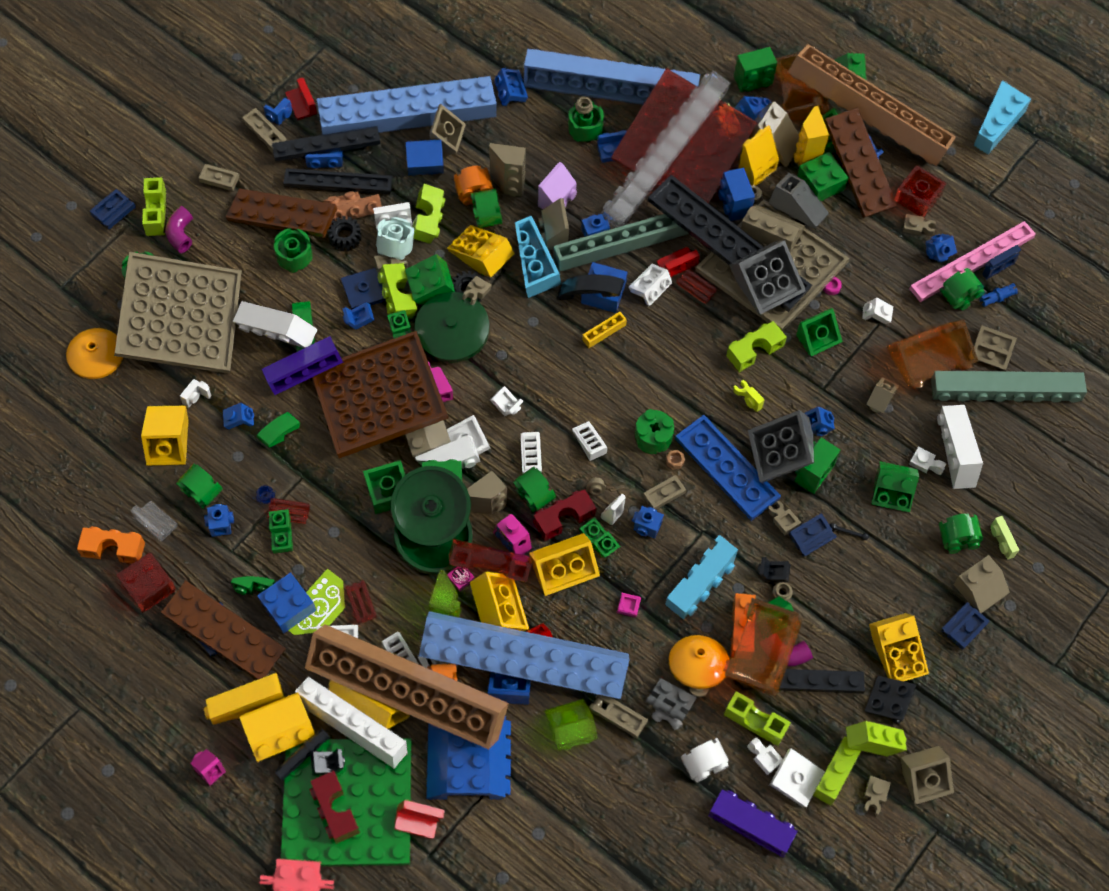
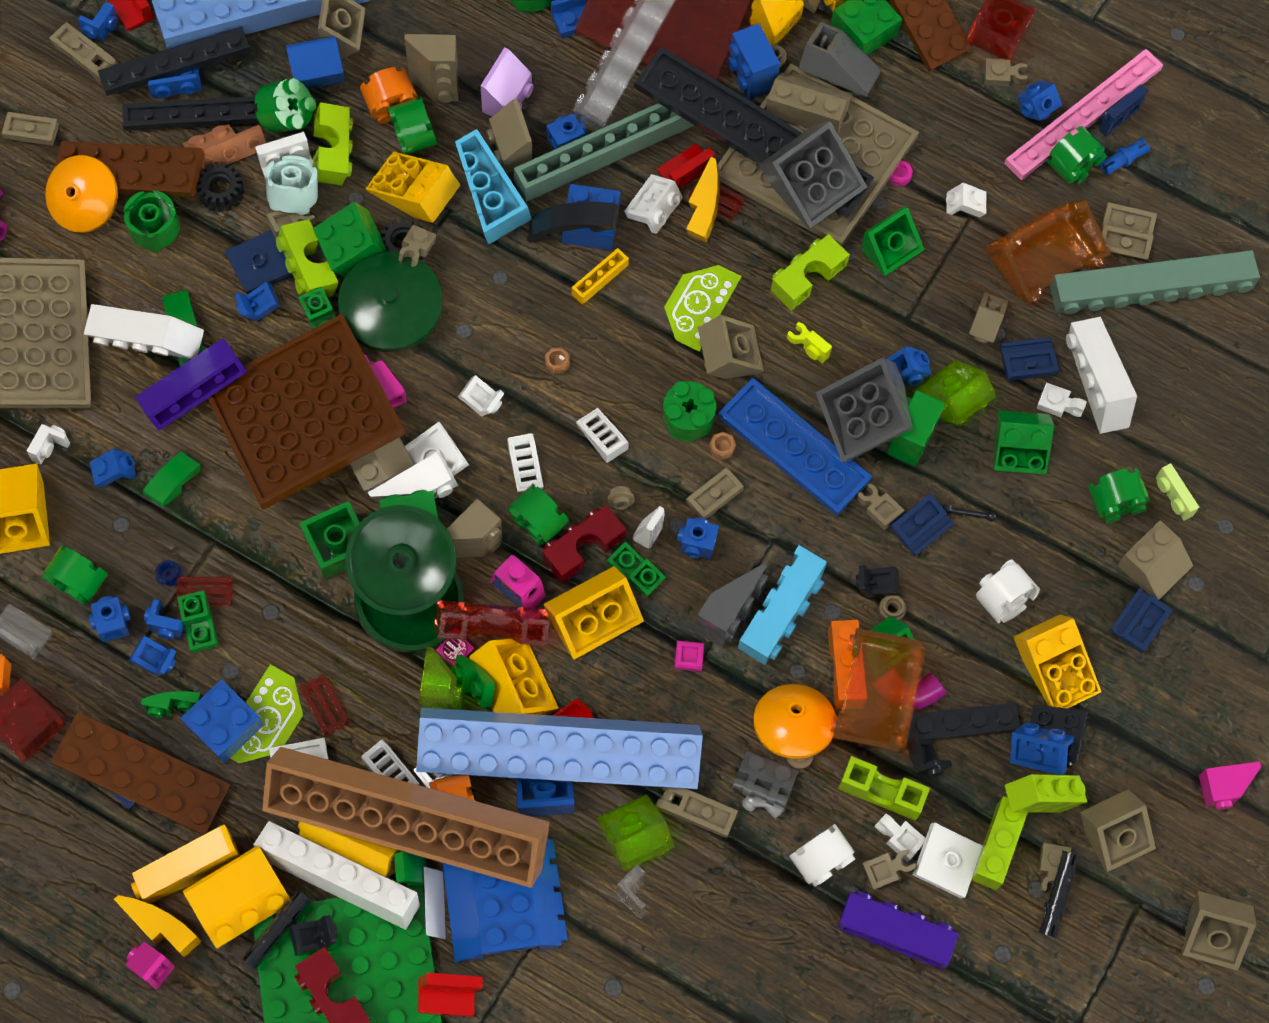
camera: 10 degrees left, 5 degrees up
(219, 739) = (159, 924): none -> yellow slope
(245, 551) = (153, 657): none -> blue bracket
(255, 227) = (93, 198): none -> light orange dish
(255, 530) = (164, 626): none -> blue bracket
(398, 183) = (284, 106): none -> green brick
(405, 726) = (410, 869): none -> green slope
(418, 753) = (434, 903): none -> white sticker
(470, 599) = (474, 680): none -> green slope
(559, 762) = (627, 888): none -> clear panel
(564, 384) = (557, 360): none -> medium nougat tile
(662, 572) = (727, 605): none -> dark grey slope
(673, 357) = (698, 300): none -> lime sticker
(687, 288) = (705, 203): none -> yellow slope
(690, 391) = (730, 348): none -> dark tan slope
(750, 777) = (885, 869): none -> dark tan plate
(790, 702) = (924, 758): none -> black bracket
(855, 444) = (961, 389): none -> clear neon green slope
(868, 591) = (1007, 592): none -> white brick
(876, 814) = (1057, 900): none -> black pin
(877, 706) = (1040, 748): none -> blue bracket
(908, 428) = (1029, 359): none -> dark blue plate
(992, 859) = (1218, 930): none -> dark tan slope
(1013, 752) = (1226, 784): none -> dark pink slope

